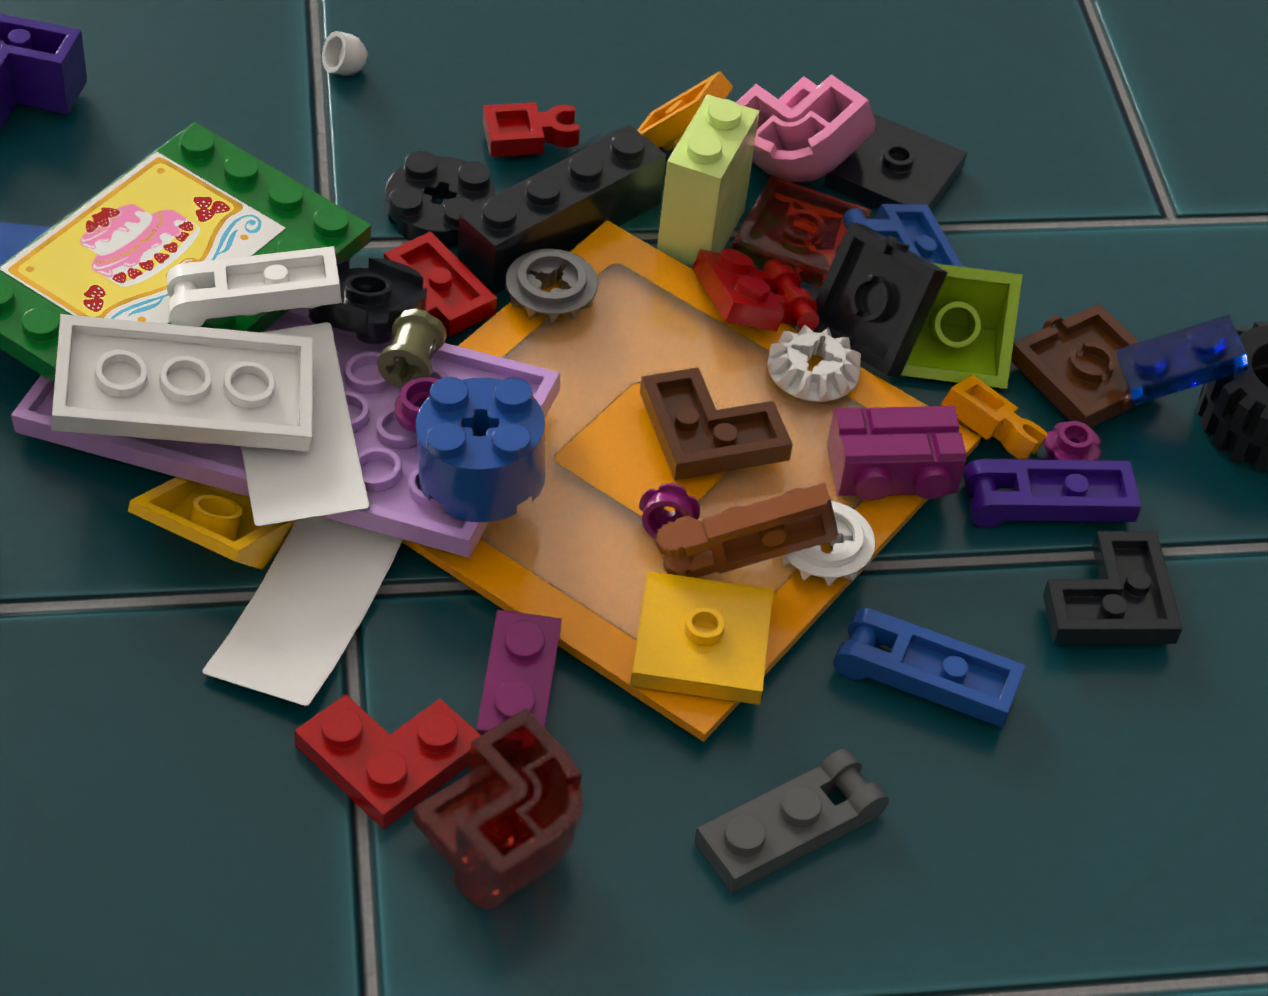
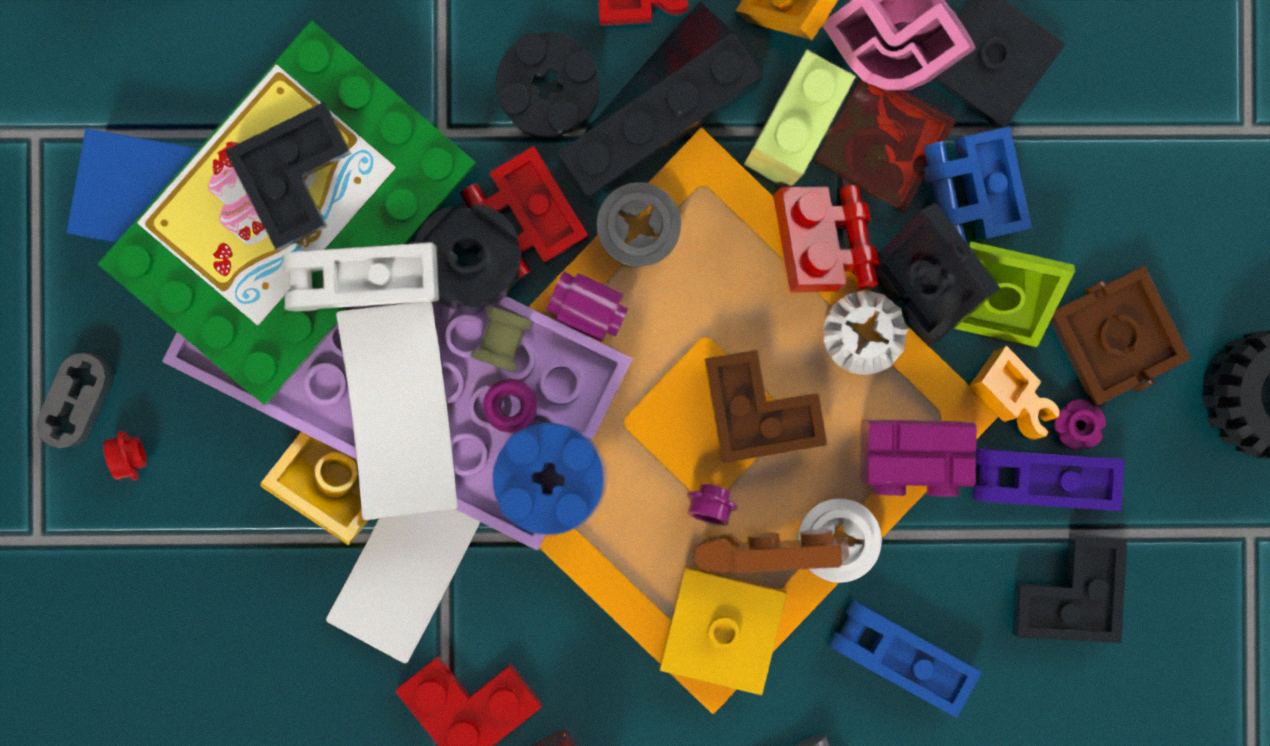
camera: 15 degrees right, 40 degrees up
(164, 212) = (274, 168): none -> black plate
(183, 383) = (297, 388): white plate -> none
(505, 336) = (587, 306): none -> magenta brick
(519, 668) = (573, 652): magenta plate -> none
(1182, 359) = (1199, 373): clear blue plate -> none

